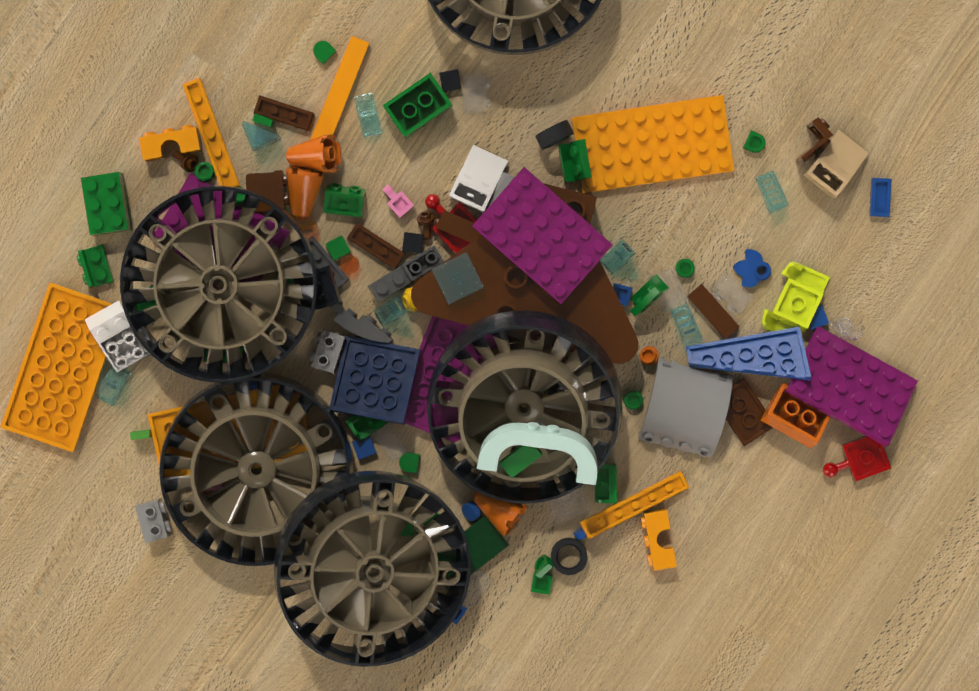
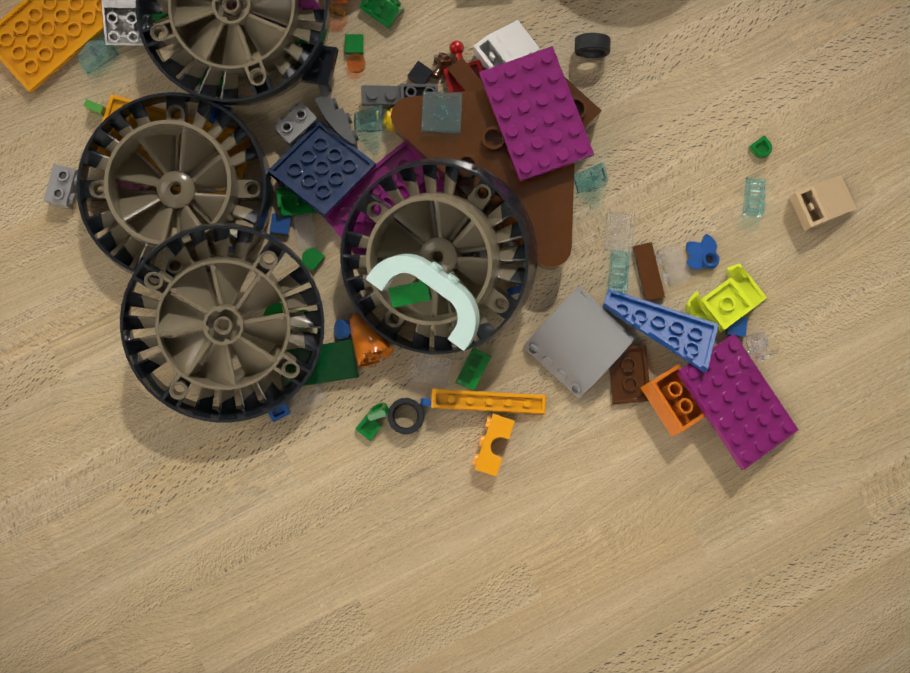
camera: 25 degrees right, 5 degrees down
(324, 259) = (335, 40): dark grey tile -> none
(376, 246) = (387, 59): reddish brown tile -> none
(399, 202) = (427, 33): bright pink plate -> none
(574, 161) = (597, 78): green bracket -> none
(623, 293) = (579, 212): blue plate -> none
(633, 400) = (537, 310): green tile -> none
(648, 295) = (599, 225): green bracket -> none
(649, 355) = (572, 279): orange plate -> none
(655, 143) = (673, 102): light orange plate -> none
(684, 268) = (643, 221): green tile -> none
(822, 133) = (825, 166): reddish brown bracket -> none
(863, 458) = (714, 471): red plate -> none
(880, 197) = (847, 253): blue tile -> none

